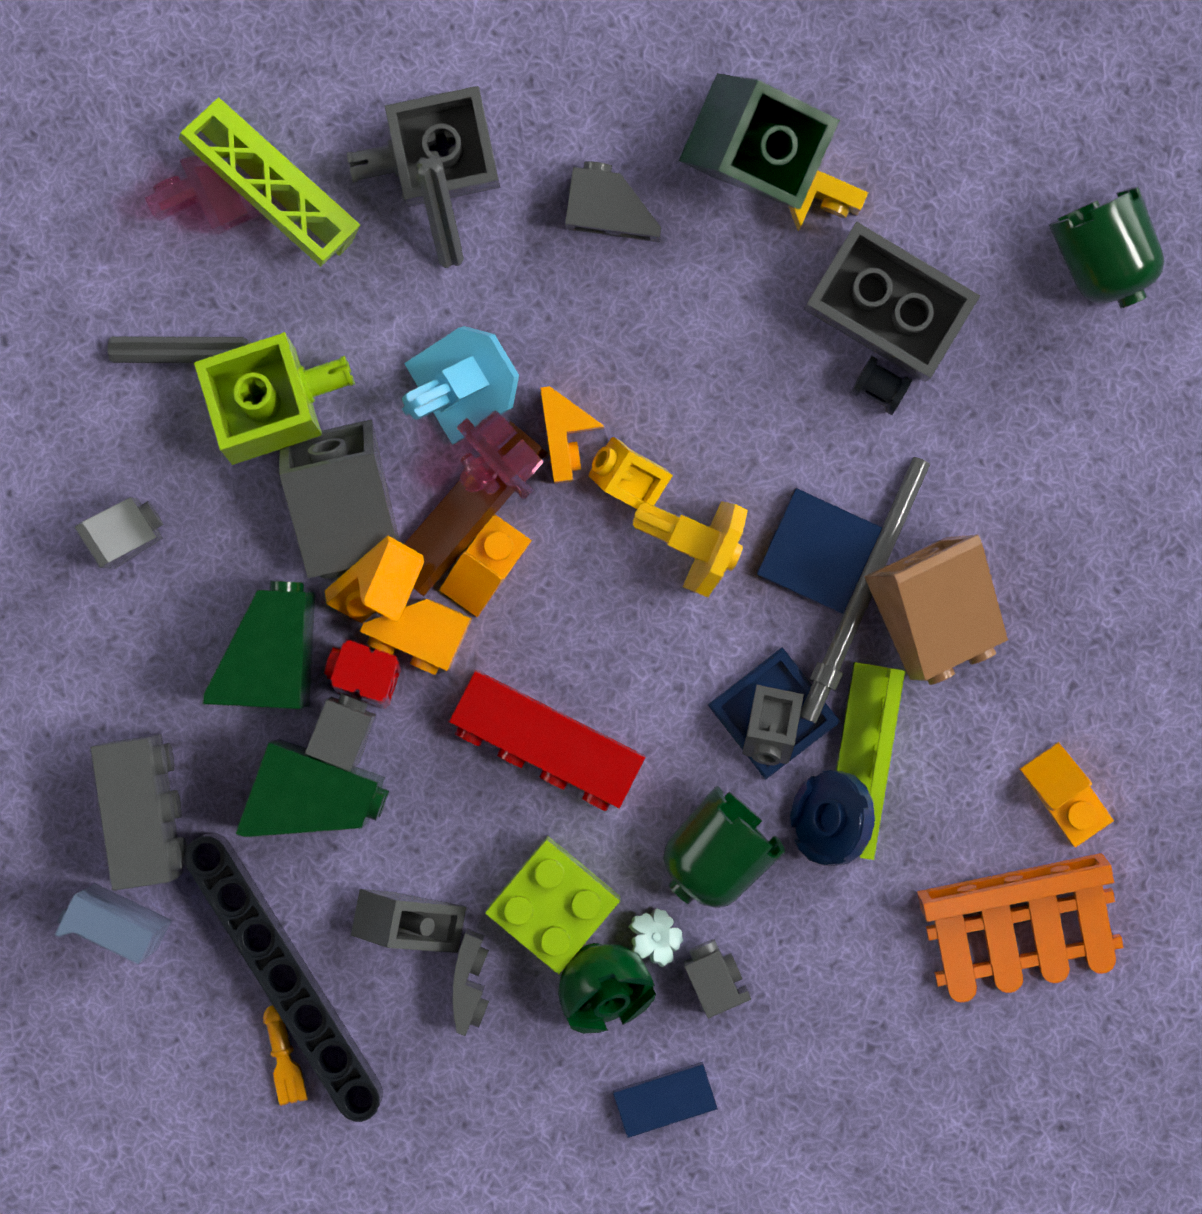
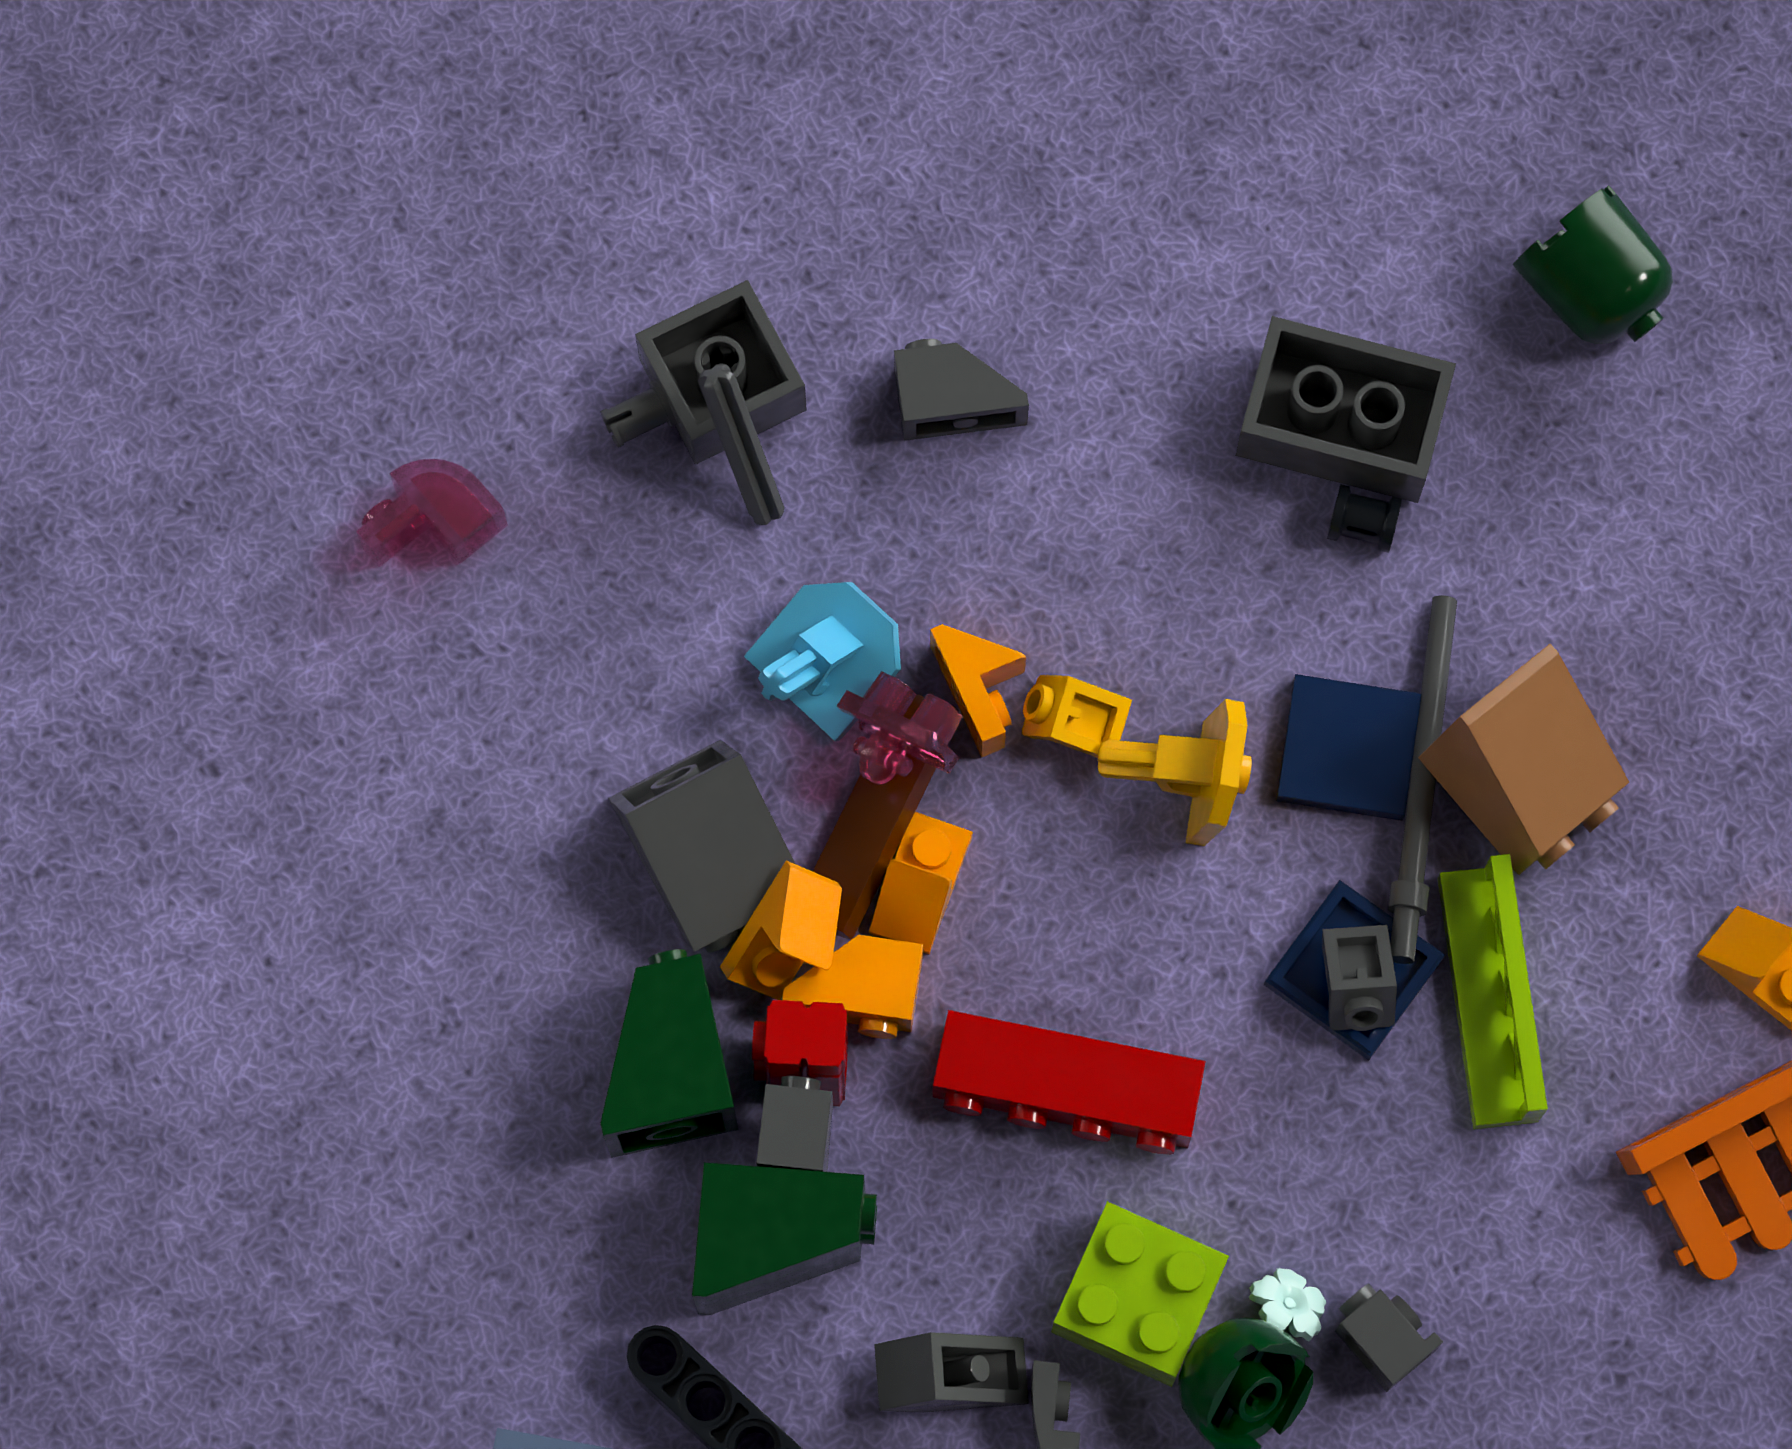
camera: 20 degrees left, 15 degrees down
(120, 532) = (432, 961): slope -> none
(138, 811) = (551, 1315): dark grey brick -> none
(169, 349) = (445, 717): dark grey axle -> none
(274, 176) = (514, 470): lime fence -> none
(286, 410) = (576, 736): lime brick -> none
(719, 851) = (1339, 1160): dark green cylinder -> none
(759, 139) = (1118, 251): slope -> none
(832, 818) = (1475, 1075): dark blue tile -> none
(836, 196) = (1192, 298): yellow slope -> none

